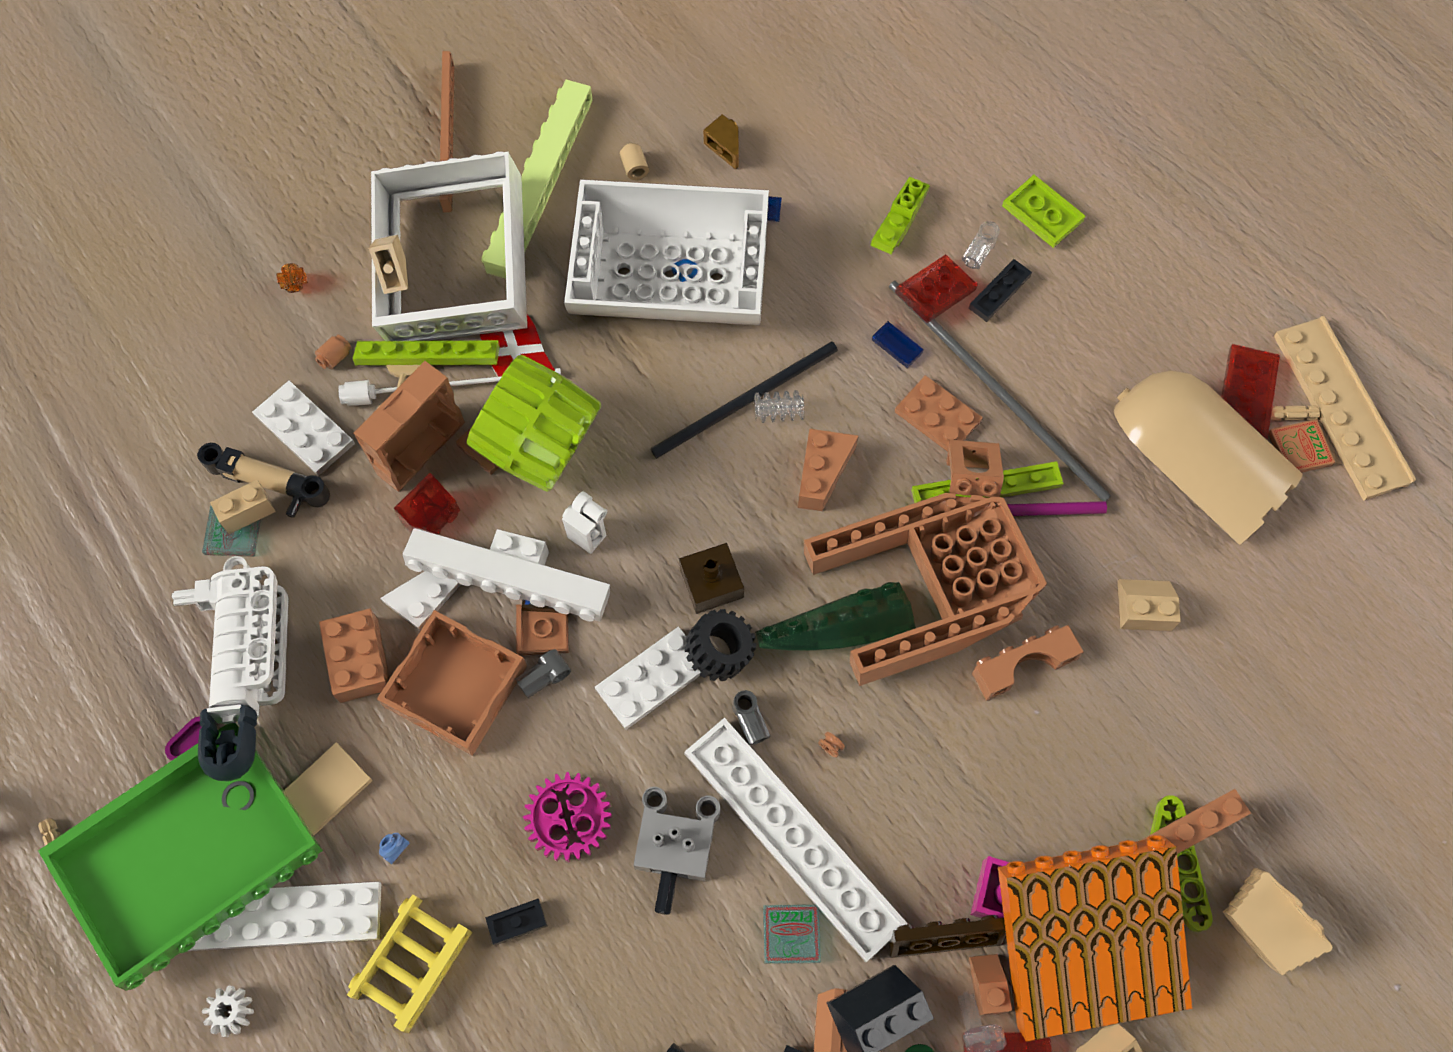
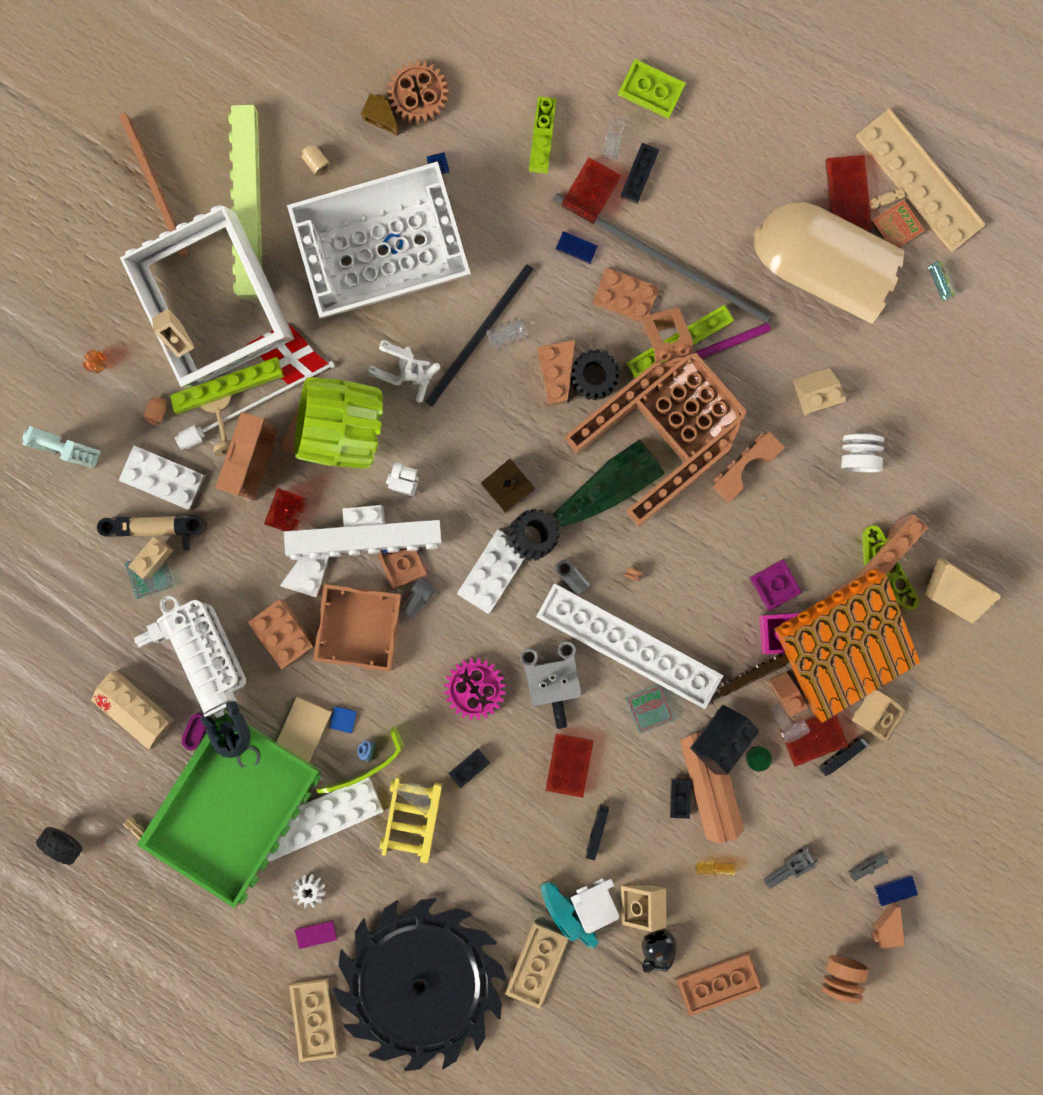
camera: 20 degrees left, 20 degrees up
(126, 681) = (131, 709): none -> tan slope
(204, 342) = (69, 451): none -> light aqua fence
(381, 795) = (342, 719): none -> blue piece
(413, 867) = (348, 782): none -> lime piece
(427, 927) = (415, 795): none -> clear plate
(651, 405) = (410, 369): none -> white piece
(652, 970) = (569, 765): none -> clear red plate
(792, 137) = (434, 87): none -> nougat gear
(868, 468) = (594, 358): none -> black tyre
(1018, 829) = (775, 585): none -> magenta tile
(1185, 694) = (863, 450): none -> white wheel
(1343, 527) = (941, 280): none -> clear light blue slope

